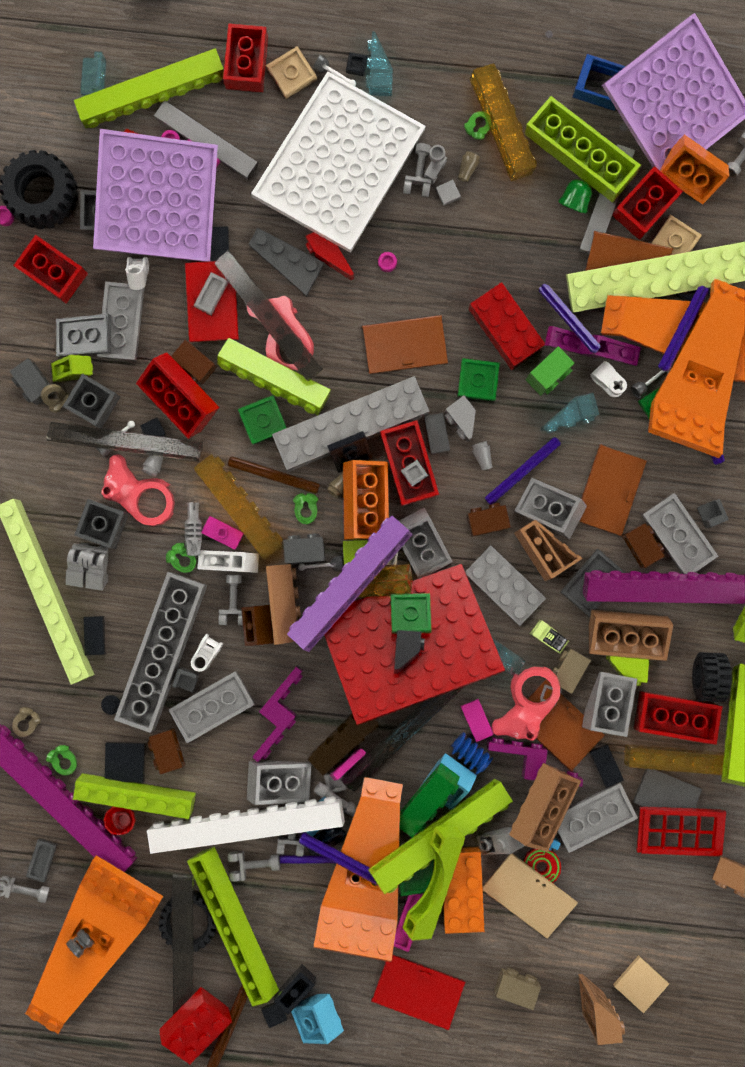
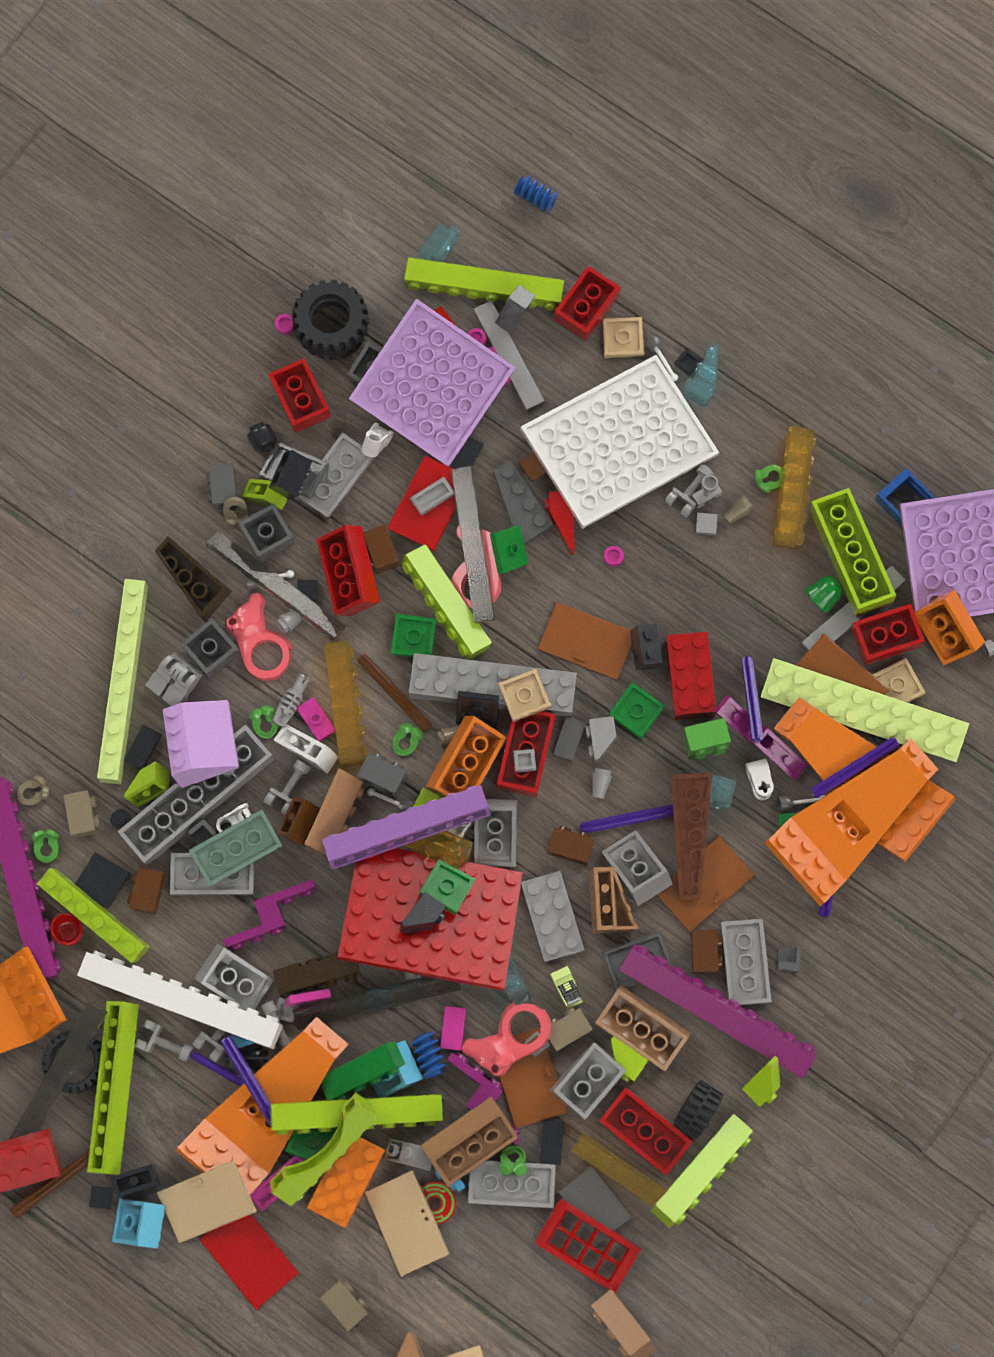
camera: 30 degrees right, 10 degrees down
(40, 322) = (261, 437): none -> black head
(59, 475) = (196, 582): none -> dark brown wedge
(76, 718) = (81, 814): none -> dark tan brick
(82, 341) = (290, 474): none -> black brick
(116, 664) = (148, 784): none -> lime slope
(137, 607) = (200, 740): none -> lavender slope
(188, 95) = (515, 309): none -> dark grey brick
(218, 677) = (235, 847): none -> sand green plate
(279, 223) = (532, 467): none -> reddish brown panel
(300, 303) = (508, 549): none -> green plate
(362, 973) = (206, 1205): none -> tan container
(383, 418) = (524, 695): none -> tan tile
(457, 322) = (646, 646): none -> black brick
(573, 442) = (690, 813): none -> copper wing
(594, 803) = (506, 1167): none -> bright green piece

